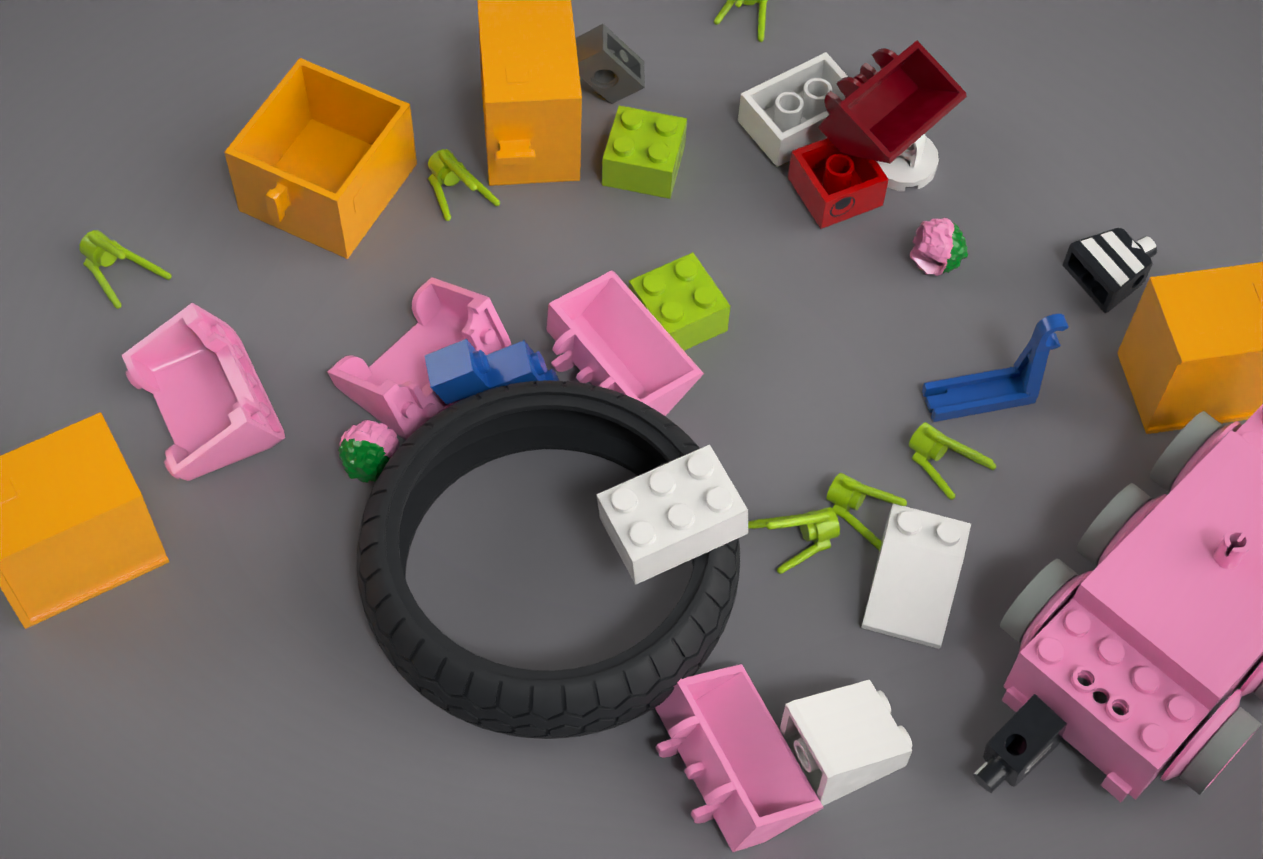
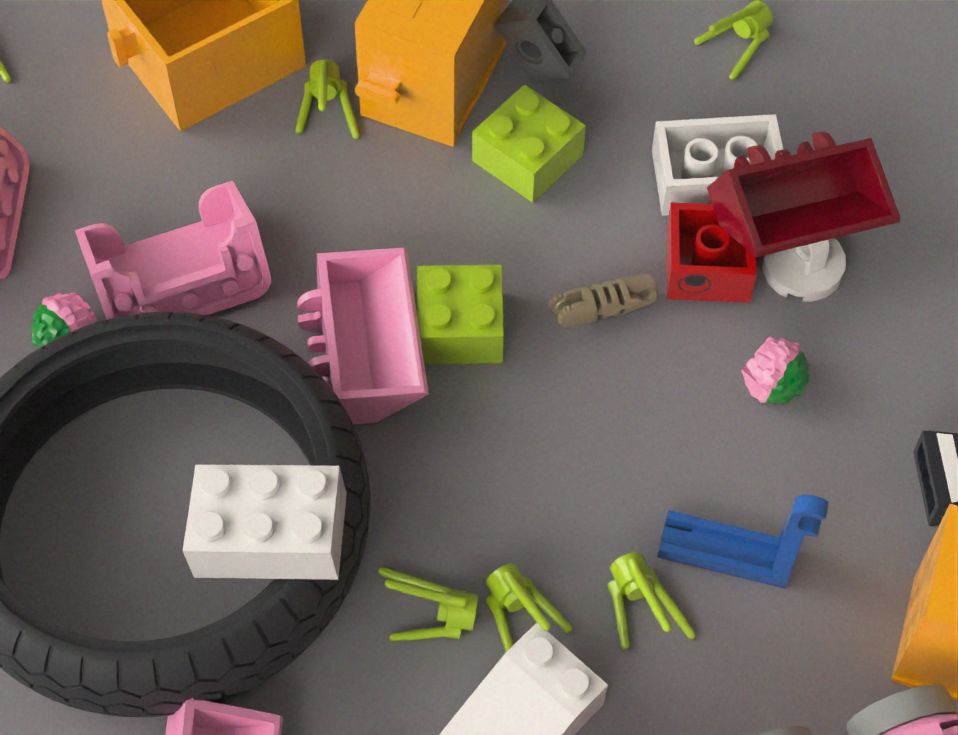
camera: 30 degrees right, 0 degrees up
(463, 371) = (188, 285): blue arch -> none
(776, 249) = (604, 300): none -> dark tan hinge

